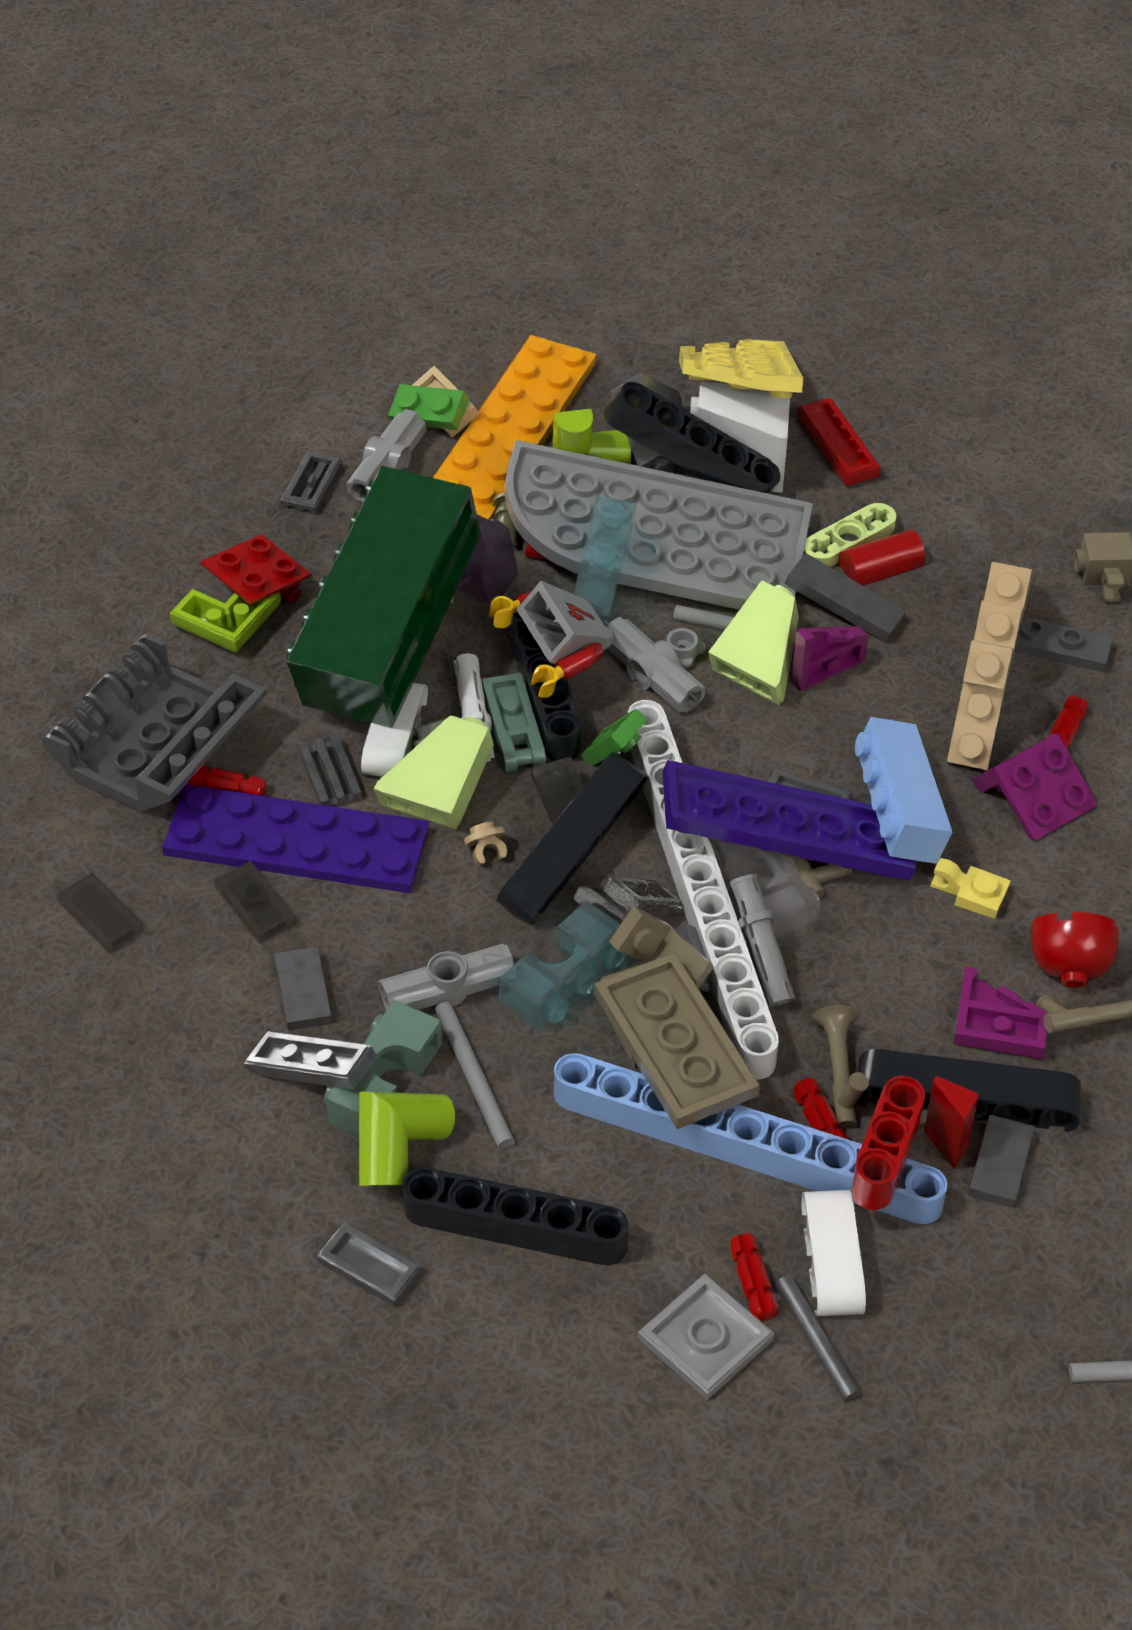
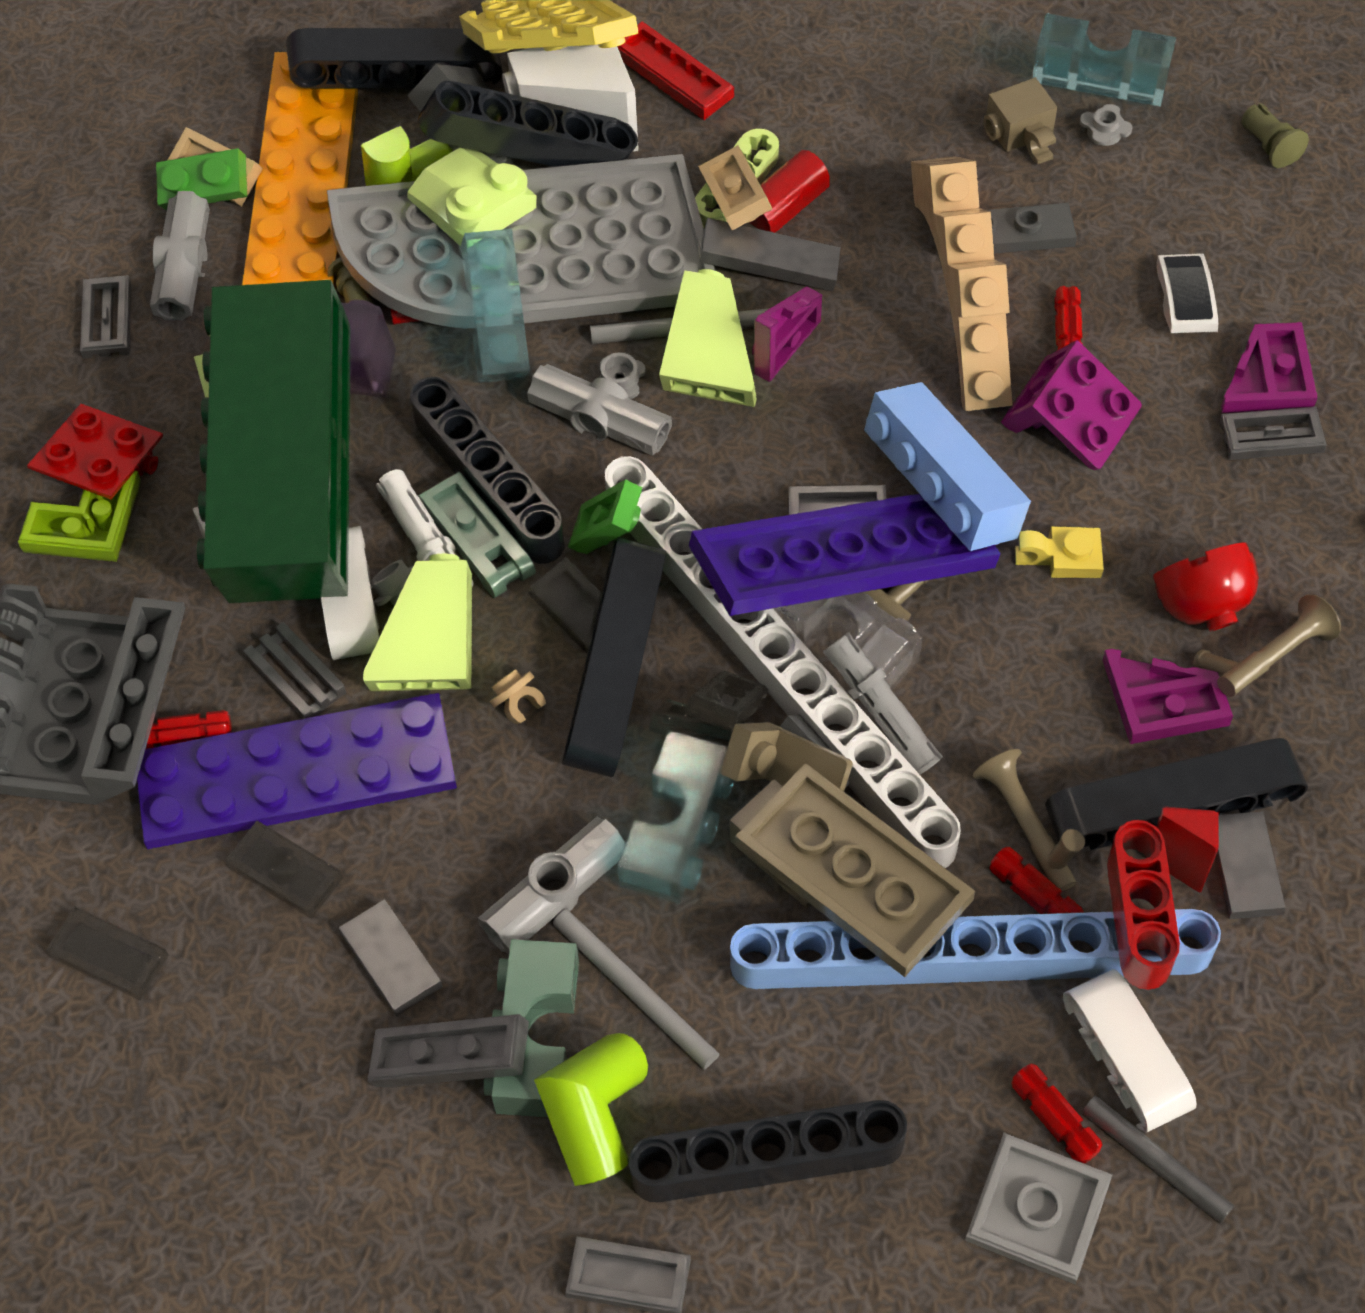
camera: 20 degrees left, 10 degrees up
(562, 627) = (491, 405): light grey torso -> none
(605, 358) = (381, 56): none -> black beam
(627, 473) = (471, 193): none -> yellowish green slope
(838, 537) = (735, 187): none -> tan plate

